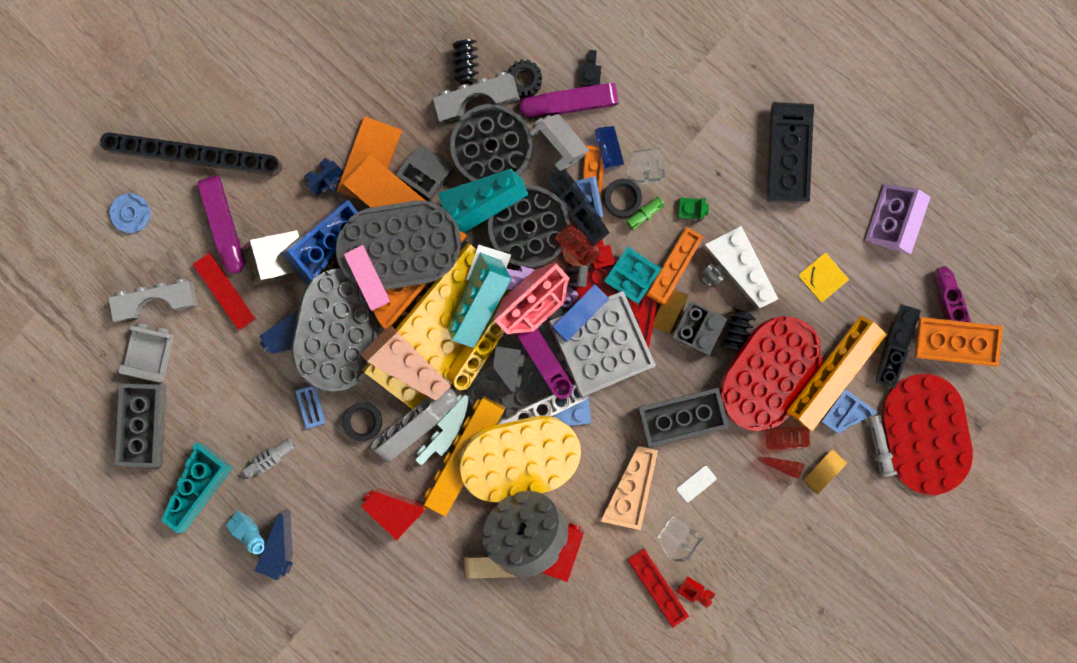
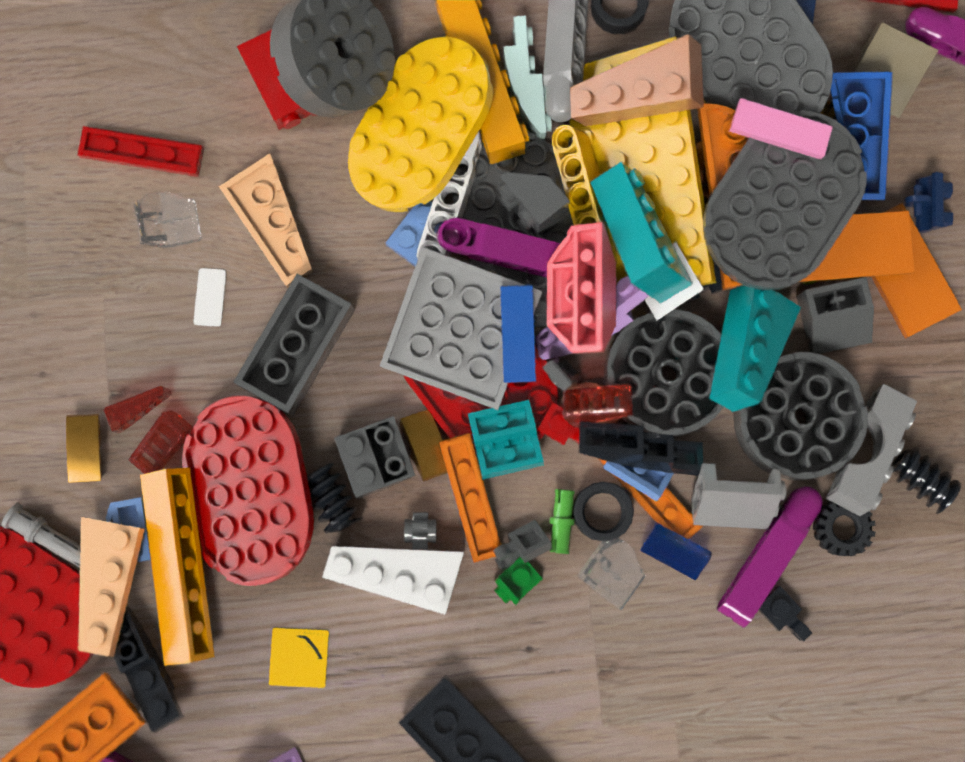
camera: 130 degrees right, 5 degrees down
(671, 220) = (524, 542): none -> dark grey plate
(694, 591) = (97, 183): red plate -> none
(868, 403) = (106, 577): none -> light nougat wing

